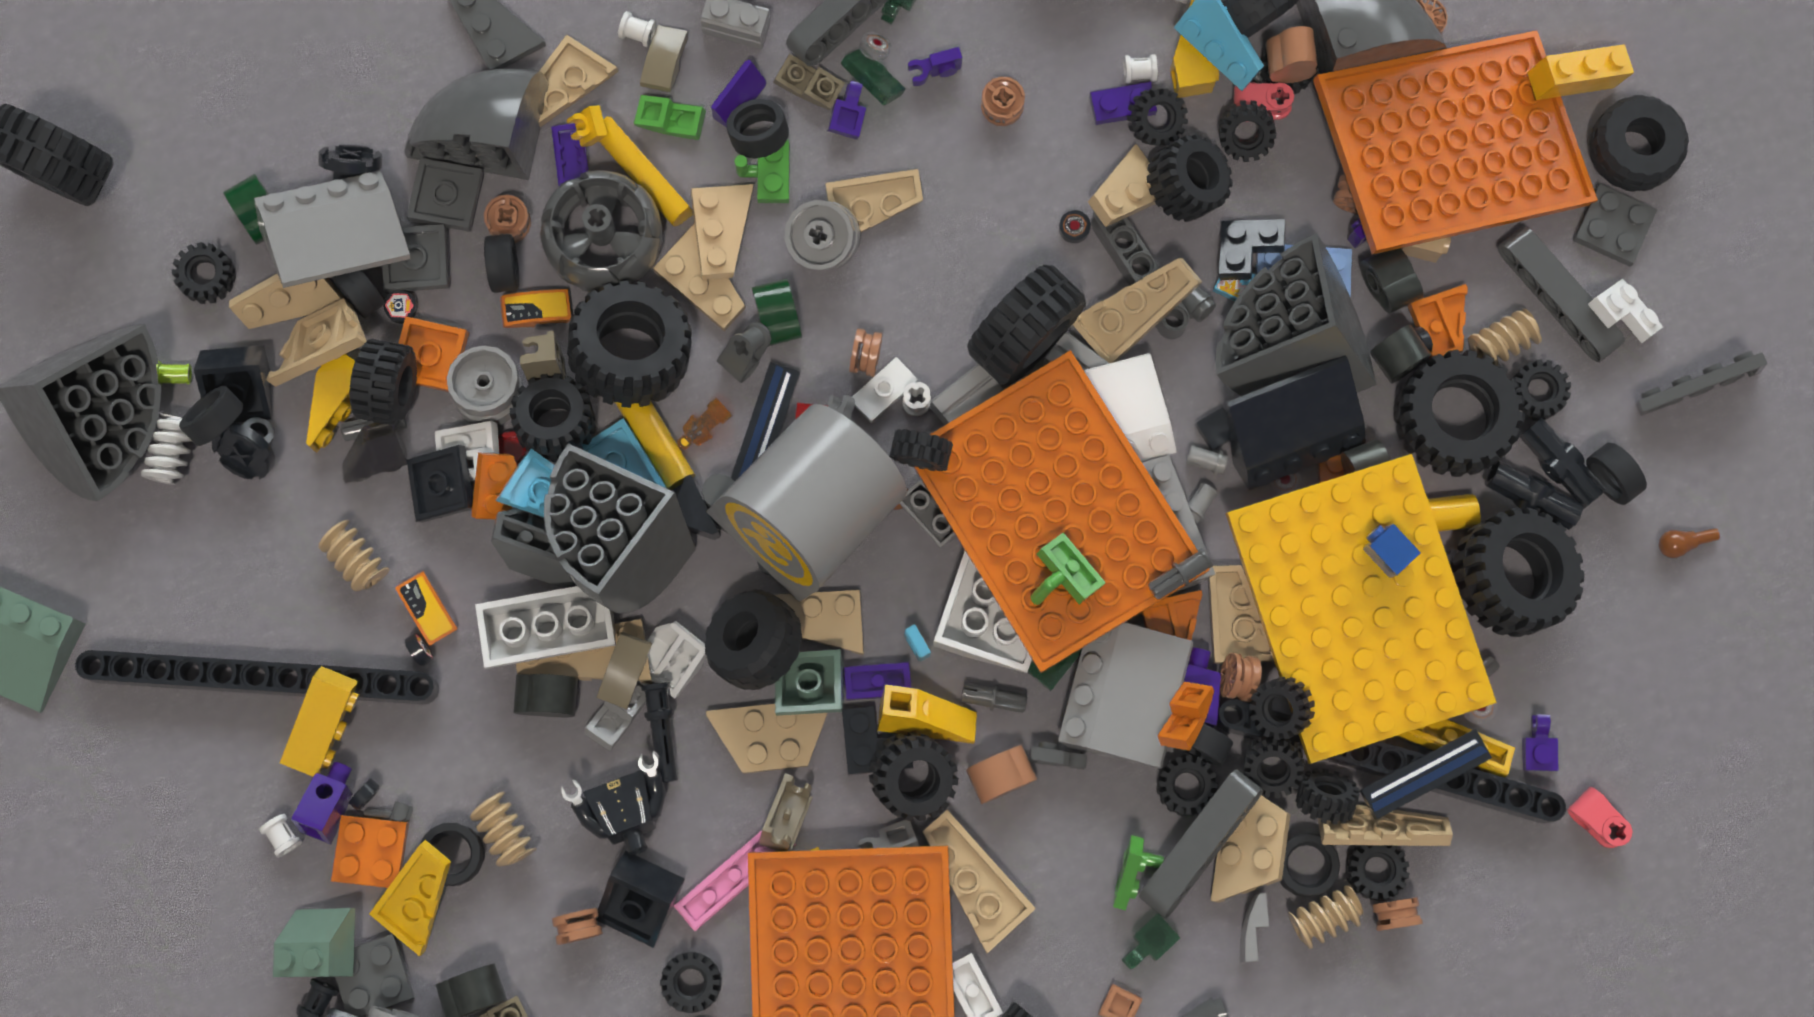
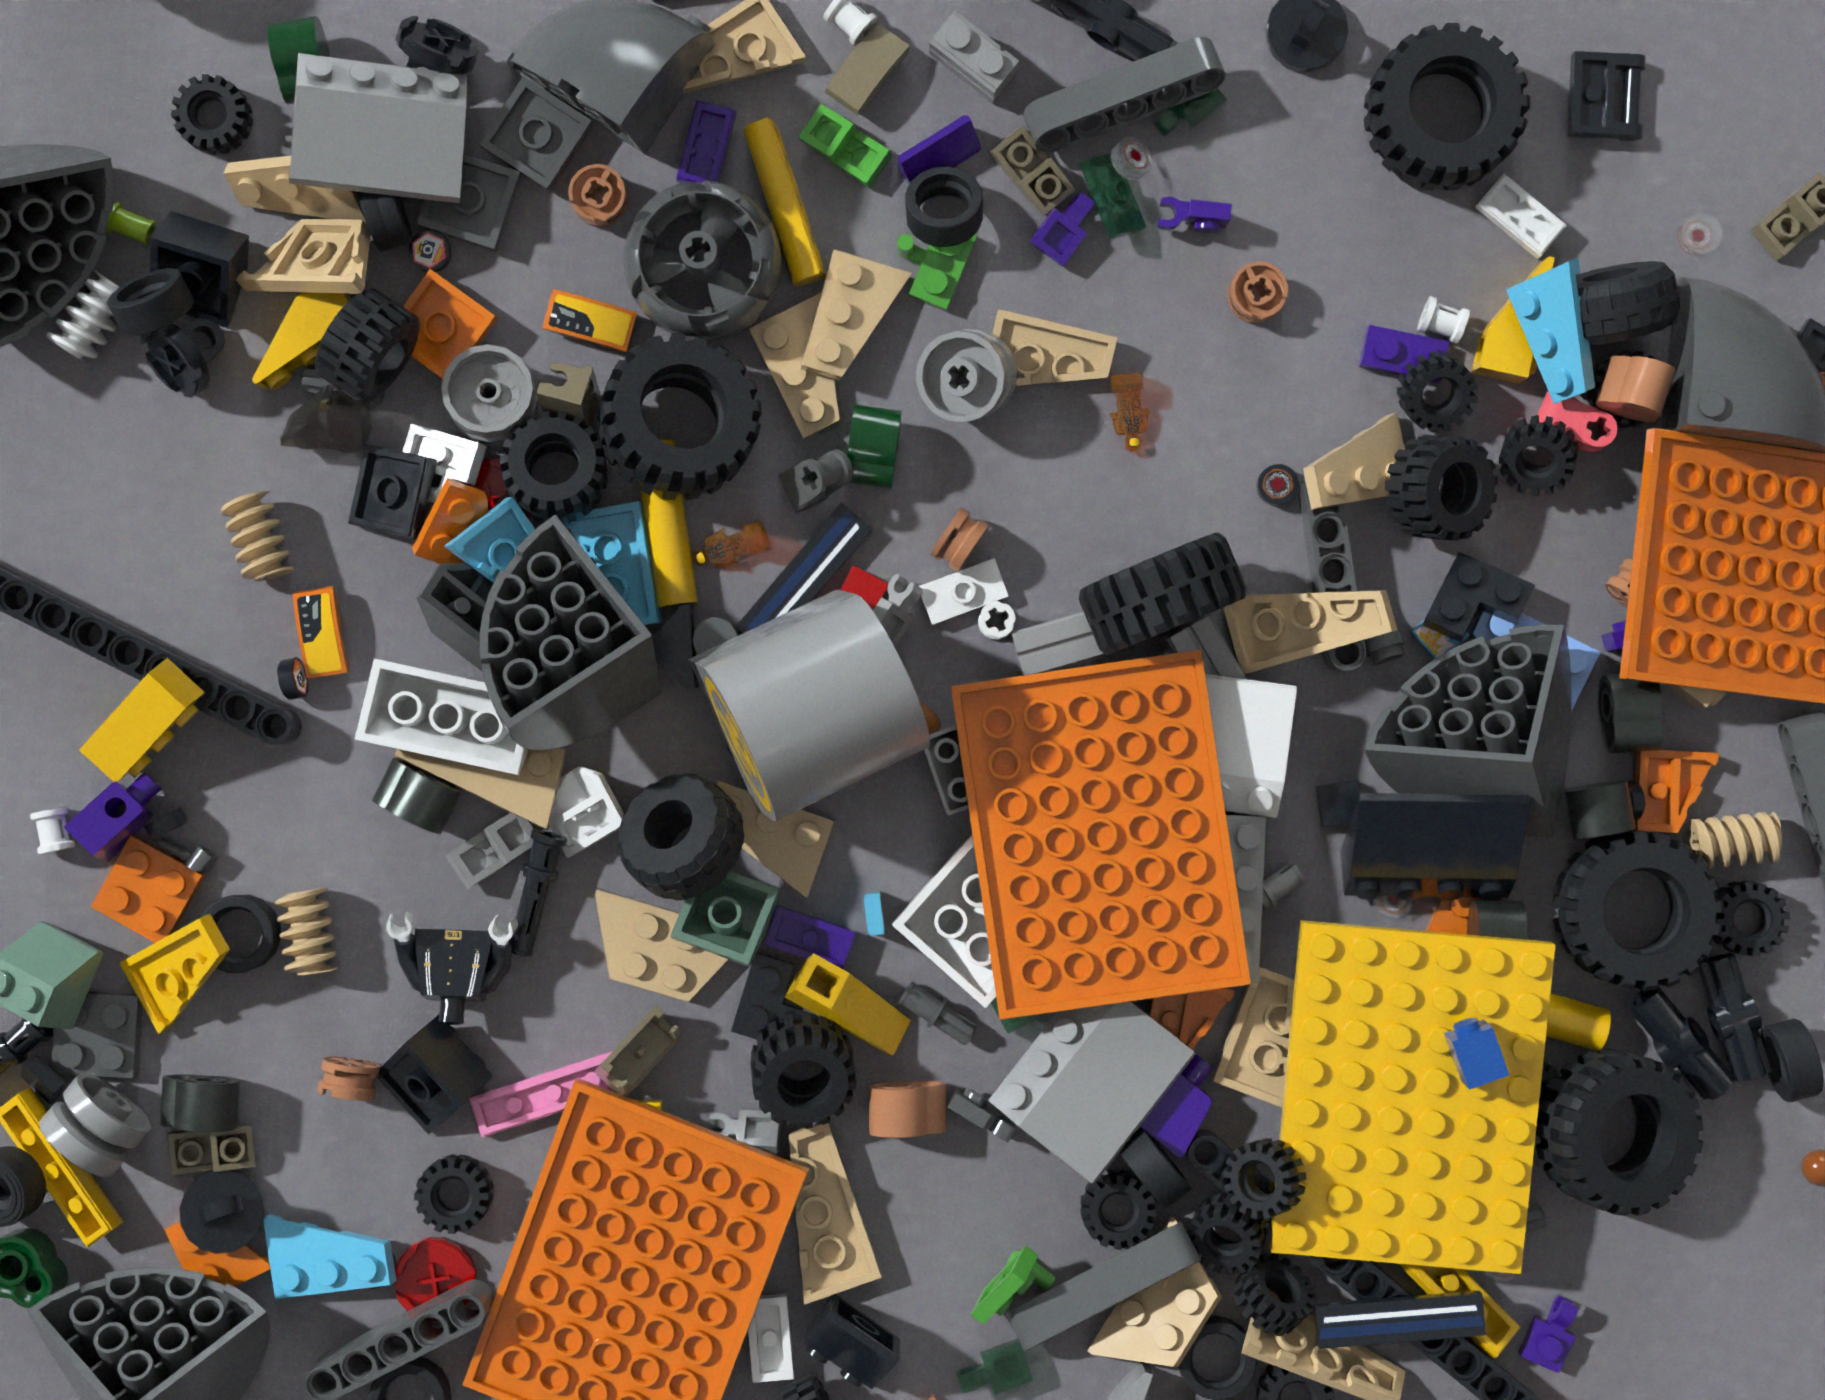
camera: 25 degrees right, 10 degrees up
(501, 263) = (568, 250): black tyre -> none
(589, 126) = (740, 121): yellow tile -> none
(624, 670) = (518, 806): dark tan slope -> none
(921, 450) = (967, 702): black tyre -> none
(950, 222) = (1130, 417): none -> clear orange piece
(1035, 967) = (852, 1343): none -> black slope
(1068, 569) = (1083, 918): bright green plate -> none
(1180, 574) = (1212, 977): dark grey axle -> none
(1188, 715) = (1154, 1136): orange slope -> none
(1207, 459) = (1311, 836): light grey pin -> none
(1240, 677) = (1235, 1115): nougat wheel -> none

